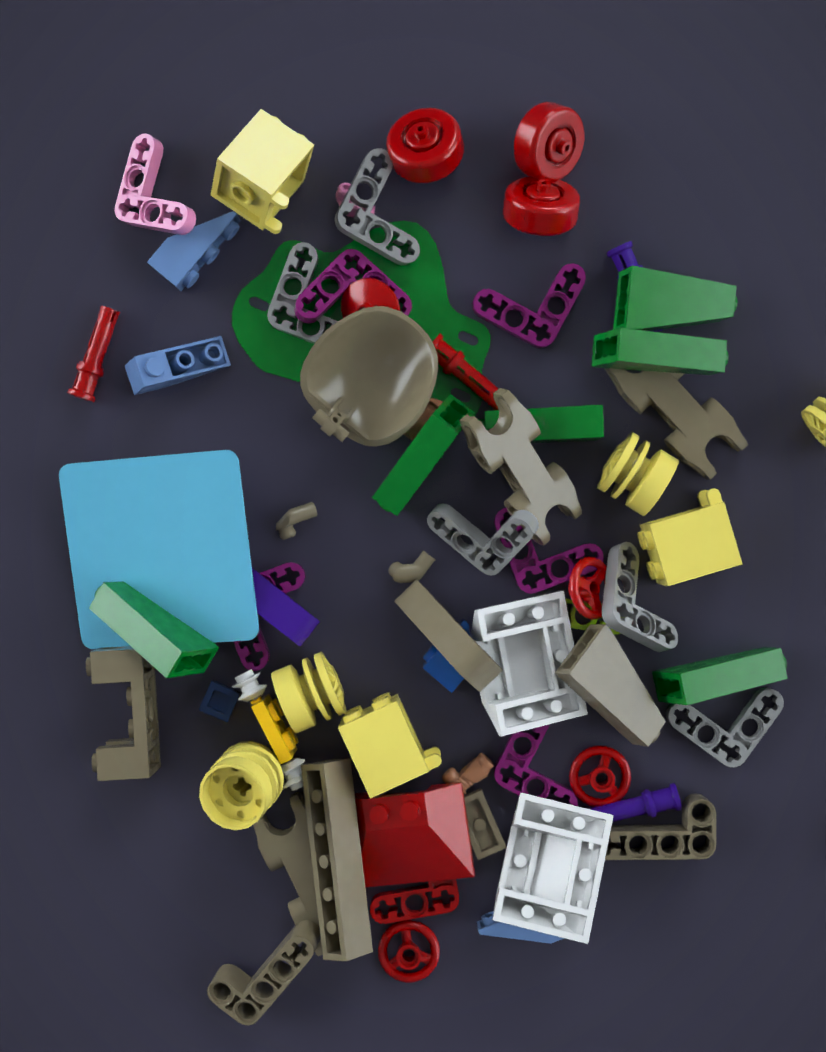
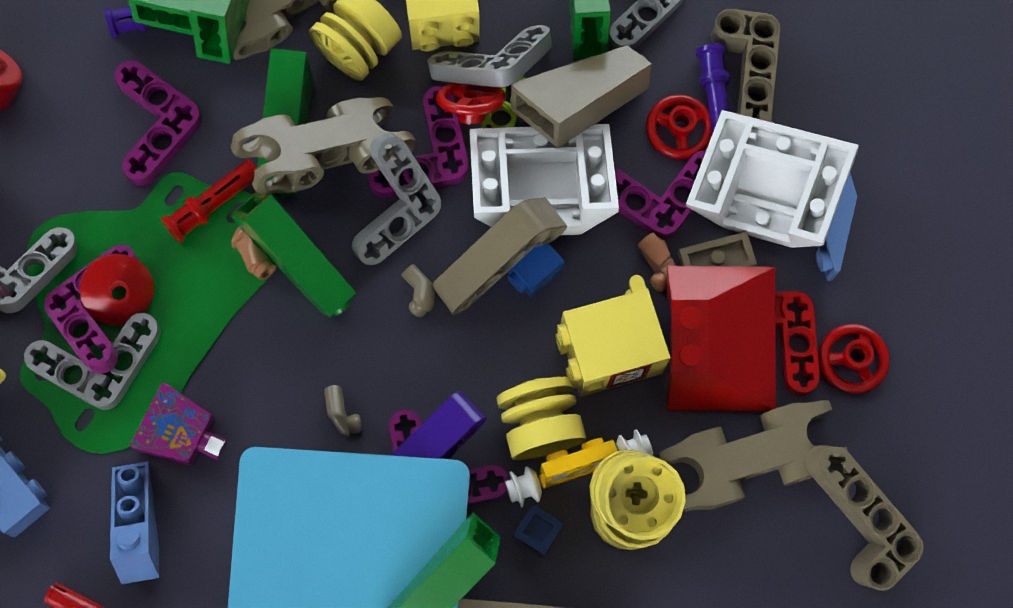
camera: 80 degrees left, 15 degrees down
(257, 386) = (177, 429): none -> torso
(336, 859) = (737, 409): dark tan brick -> none
(370, 376) = (192, 294): dark tan piece -> none
(541, 206) = (44, 92): red wheel -> none

